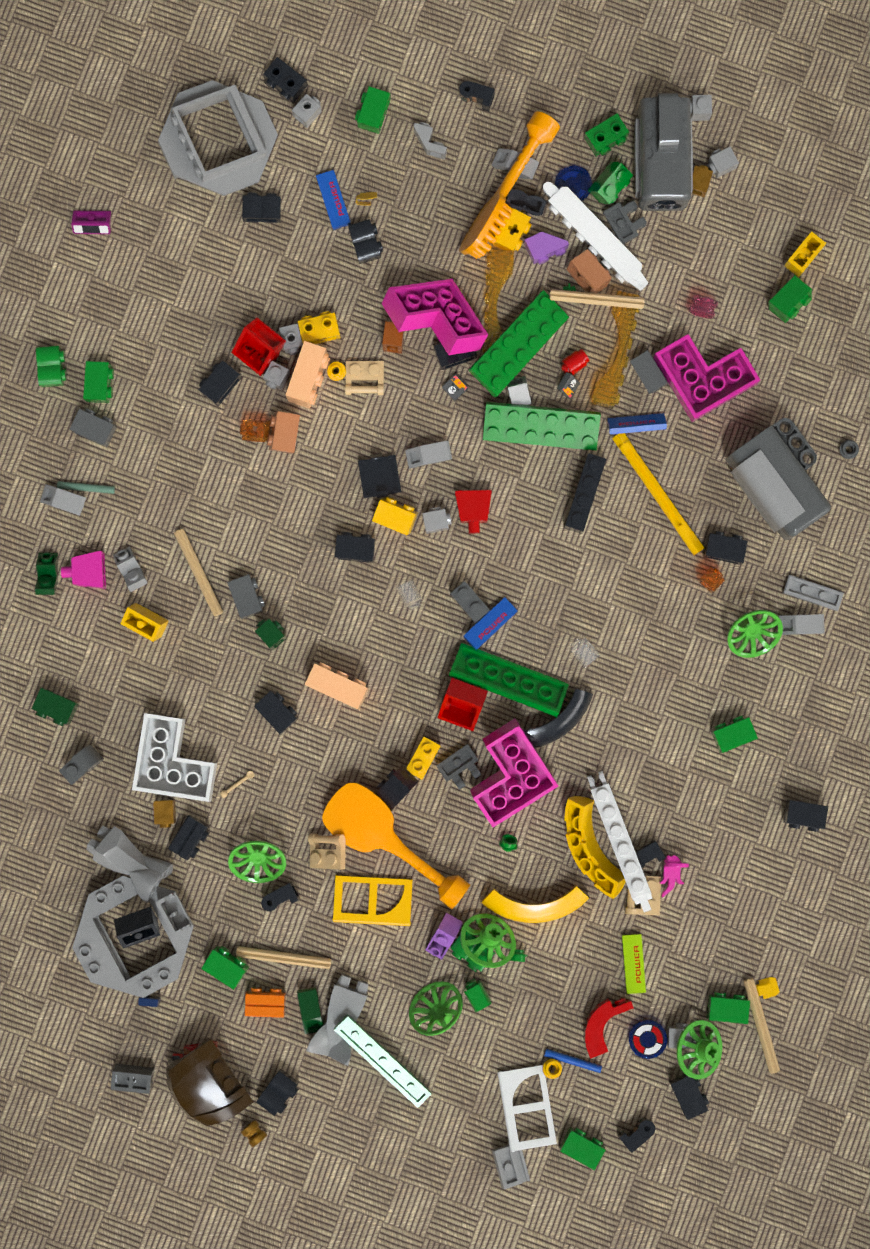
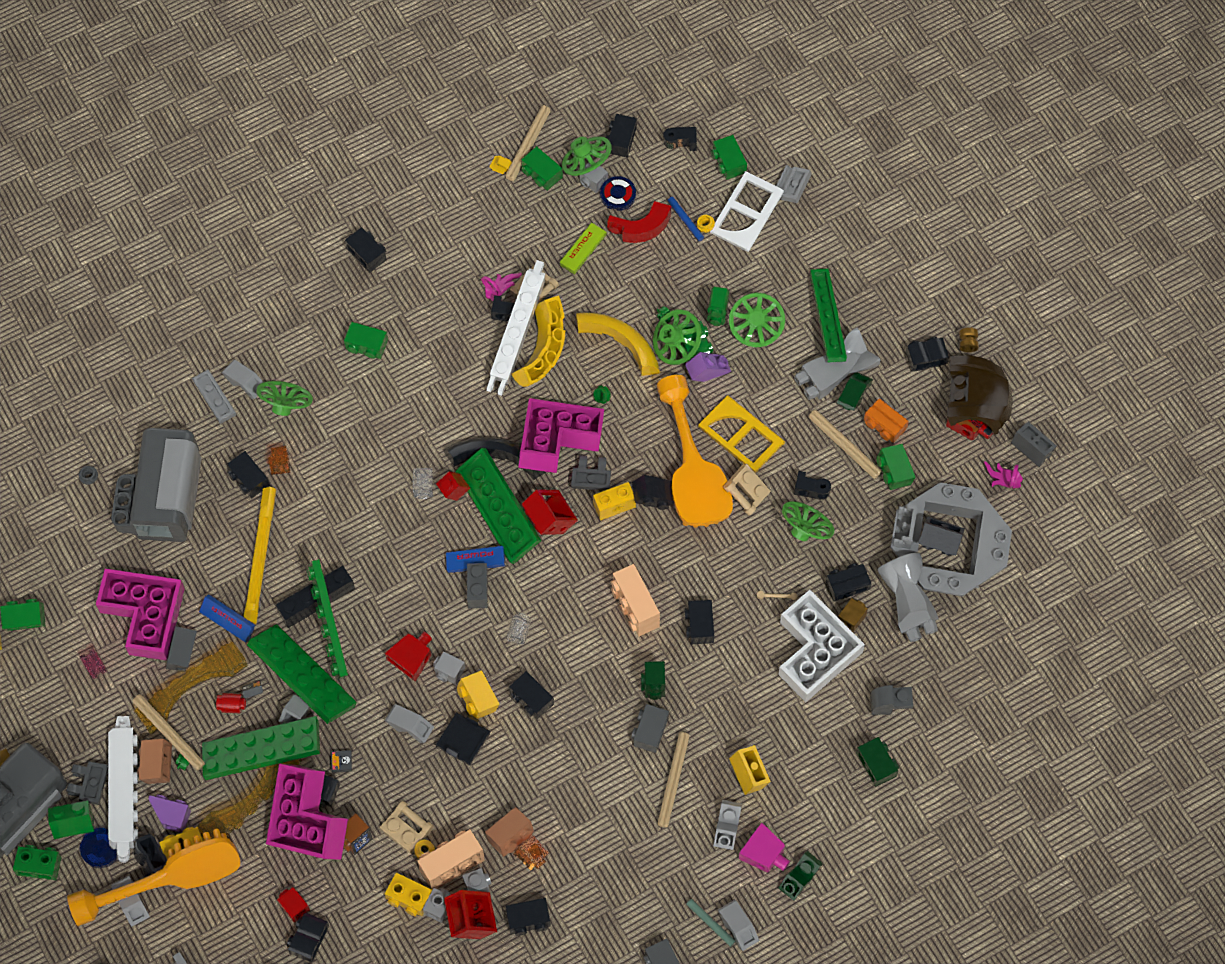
camera: 145 degrees left, 20 degrees down
(132, 1031) = (1005, 477): none -> dark pink piece
(149, 1001) = (974, 483): dark blue tile -> none
(396, 255) = (293, 904): none -> red brick
(557, 667) = (453, 486): none -> red brick
(558, 475) = (324, 611): none -> green plate

